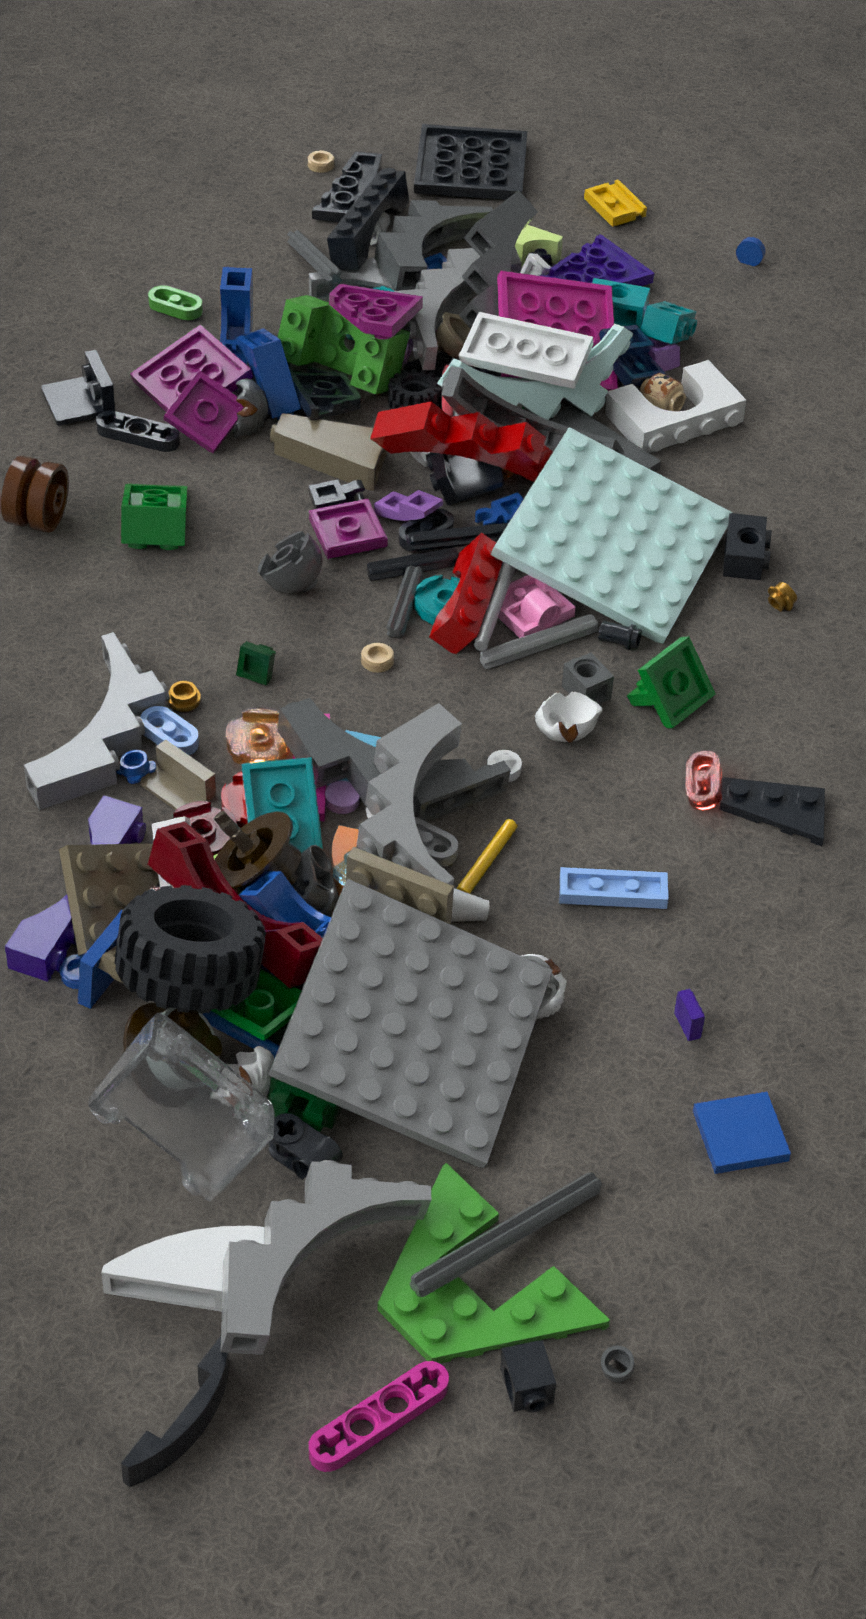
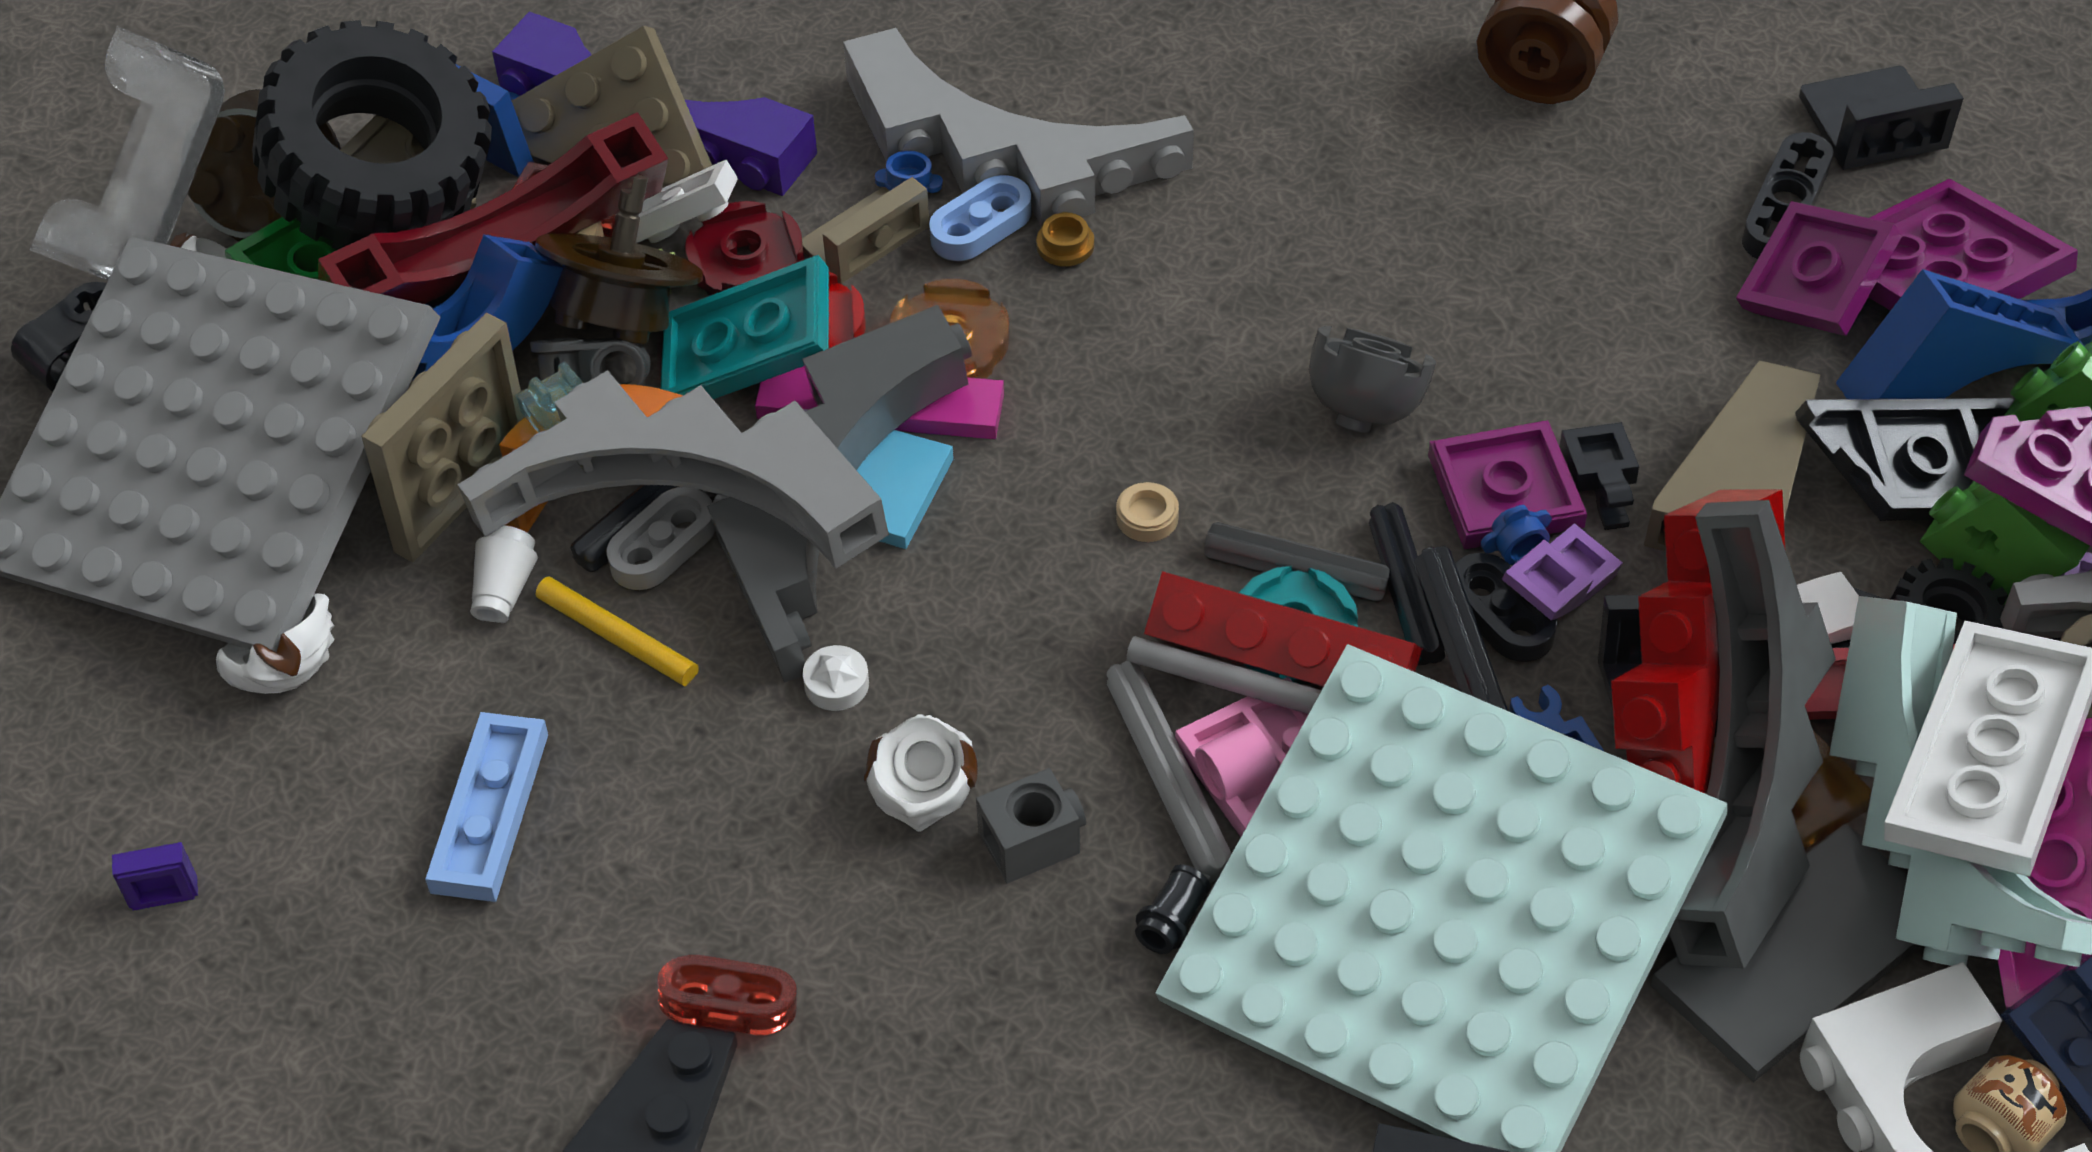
camera: 100 degrees right, 5 degrees up
(154, 516) = (1538, 203): green slope -> none
(254, 410) = (1836, 328): dark grey hair -> none
(256, 662) = (1134, 331): dark green tile -> none
(391, 515) = (1517, 533): none -> blue plate
(673, 683) = (987, 968): green bracket -> none

